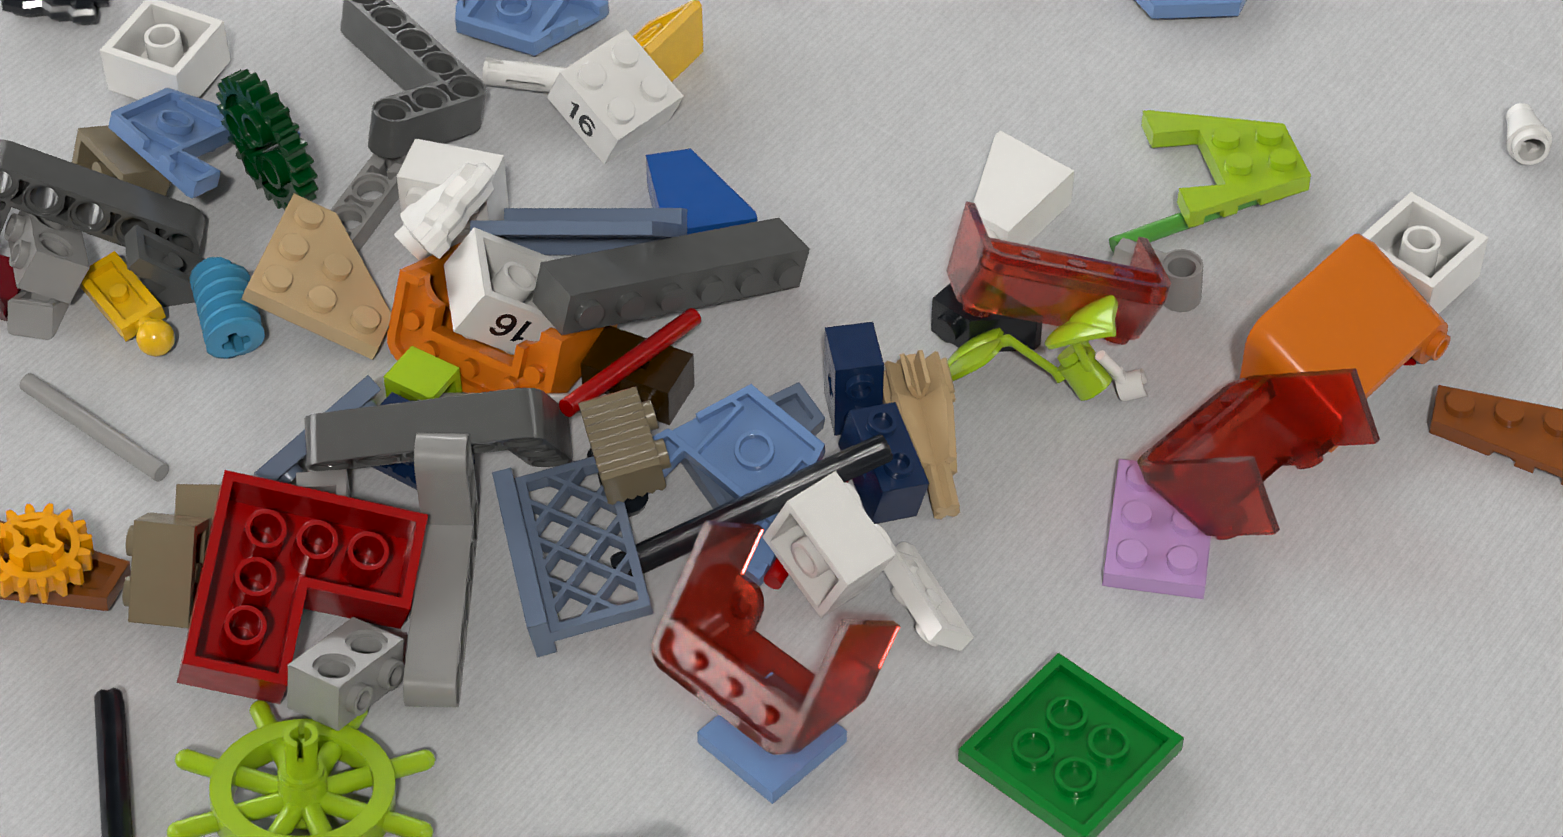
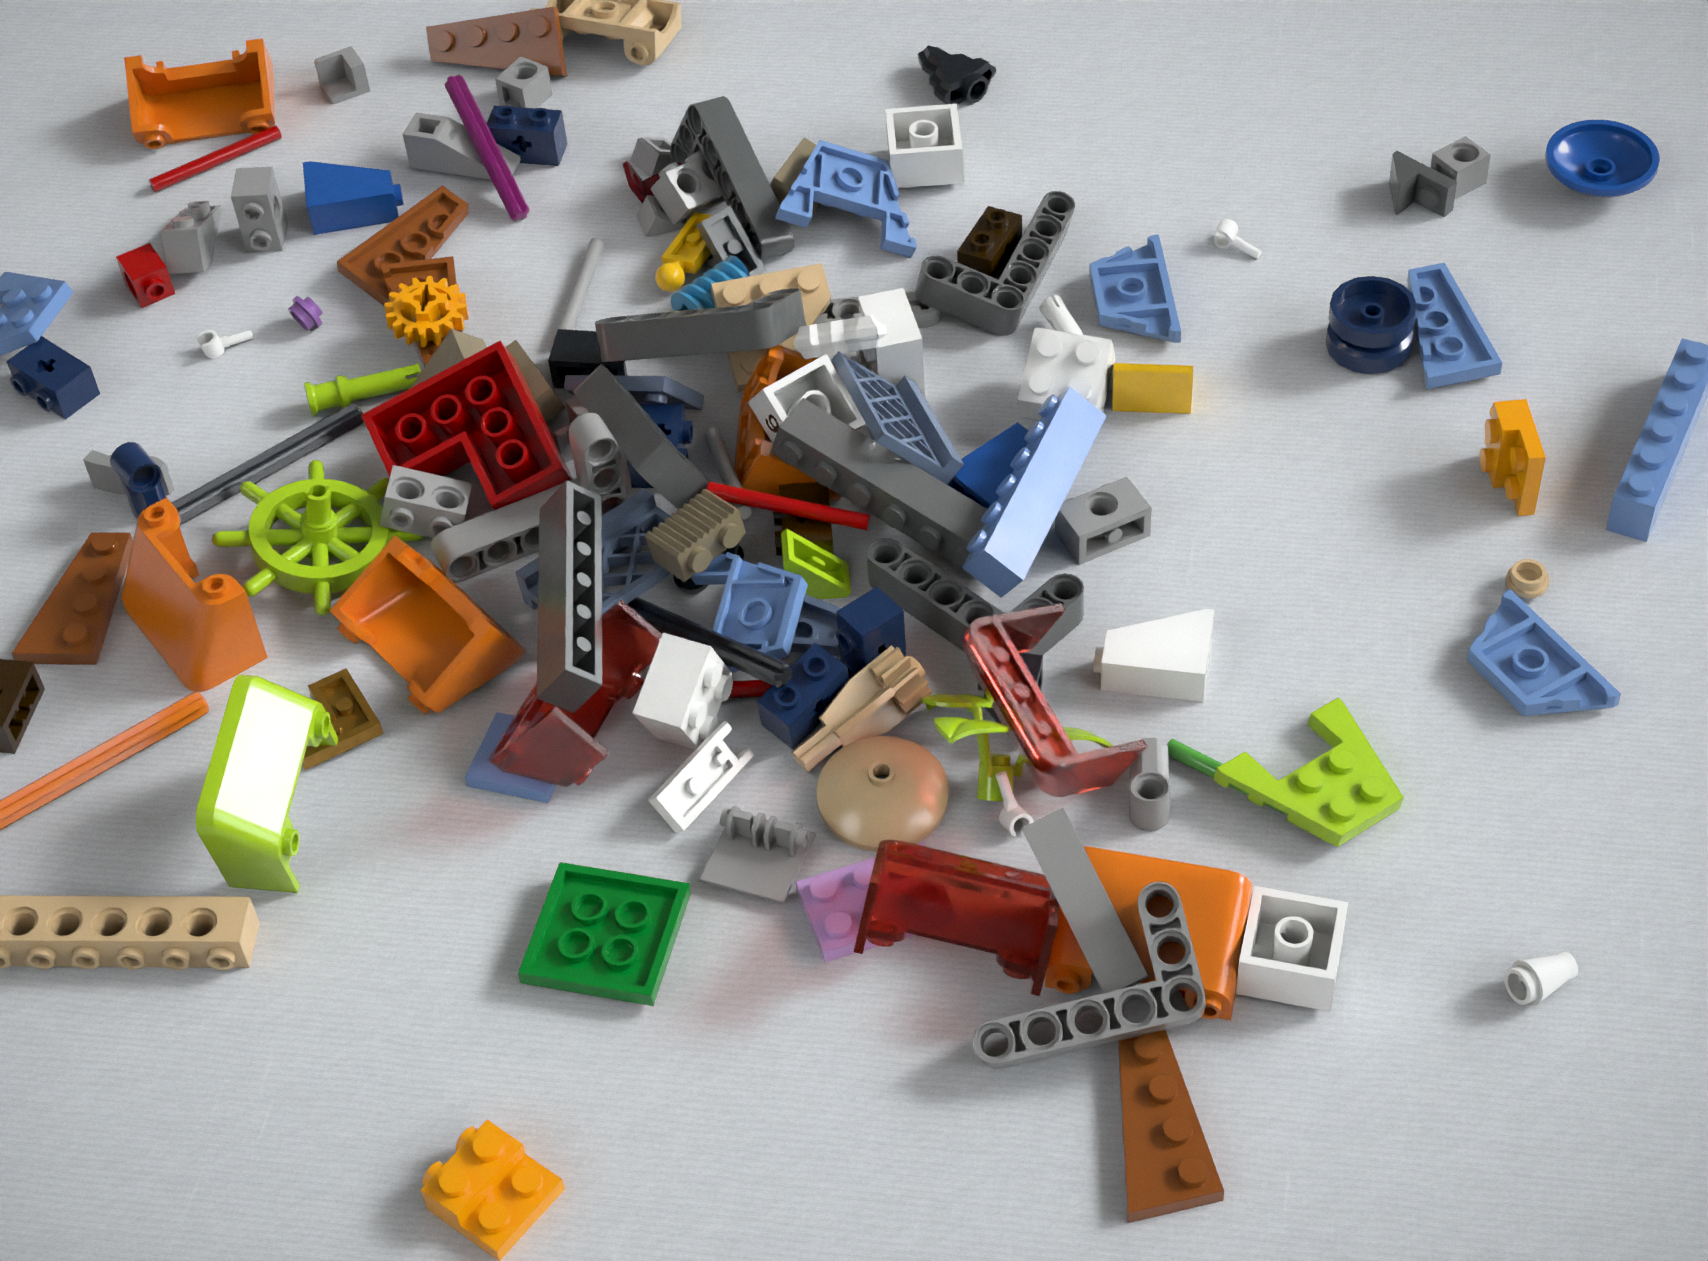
camera: 65 degrees right, 0 degrees up
(68, 692) = (345, 391): none -> lime pin
(229, 445) = (578, 354): none -> black slope
(266, 138) = (854, 223): dark green gear -> none
(361, 71) = (991, 242): none -> dark brown brick
(376, 273) = (703, 331): none -> dark grey beam
(422, 376) = (716, 414): lime panel -> none
(542, 745) = (424, 627): none -> orange windscreen
(637, 575) = (570, 597): none -> dark grey brick
(693, 392) = (822, 571): none -> lime slope
(764, 177) = (1033, 492): none -> brick
(808, 161) = (1103, 520): none -> light grey brick
(894, 300) = (952, 607): none -> dark grey beam
(1029, 467) = (872, 809): none -> tan dish
(1046, 591) = (757, 855): none -> light grey hinge
(1315, 347) = (1084, 902): none -> light grey tile
(1442, 355) = (1109, 1004): none -> light grey beam

